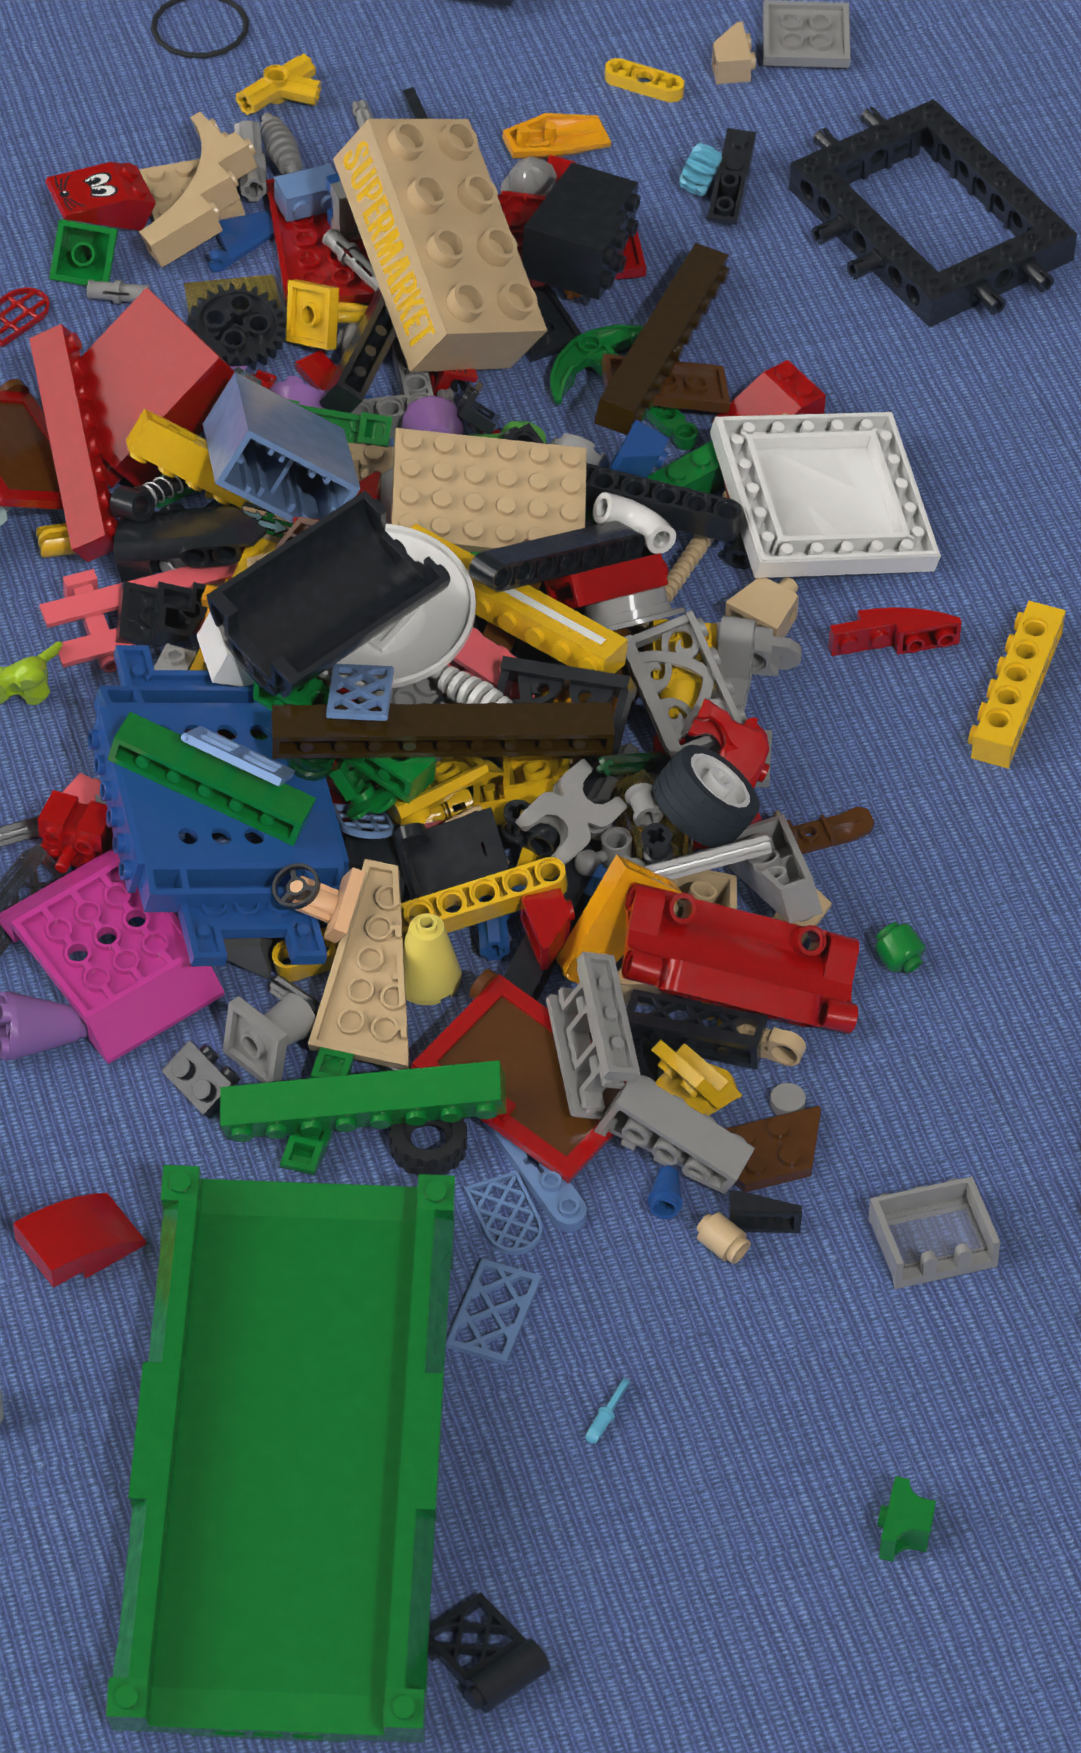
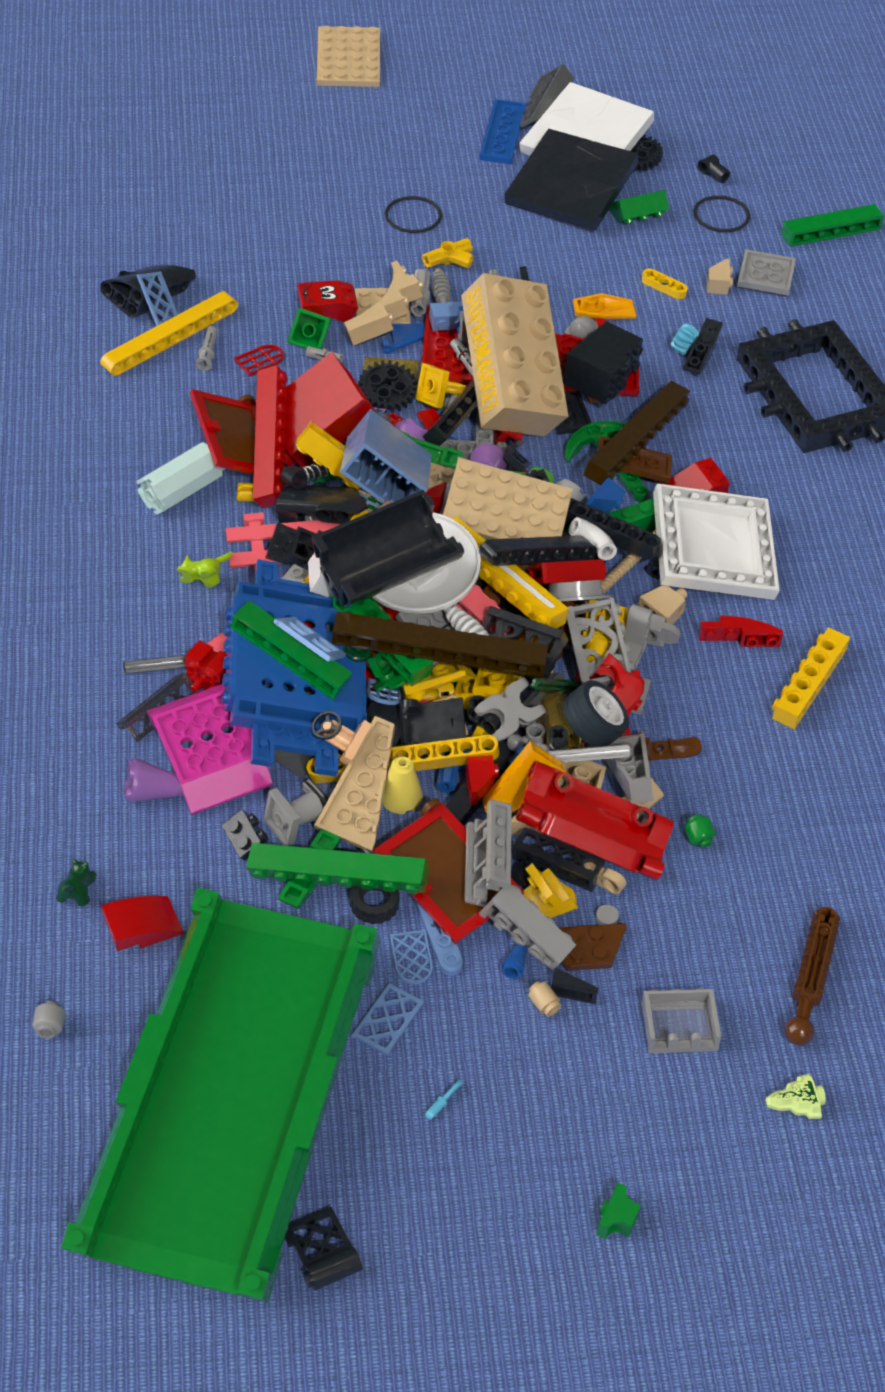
camera: 10 degrees right, 0 degrees up
(360, 711) = (390, 624): medium blue window -> none
(642, 801) = (556, 713): light grey bush -> none

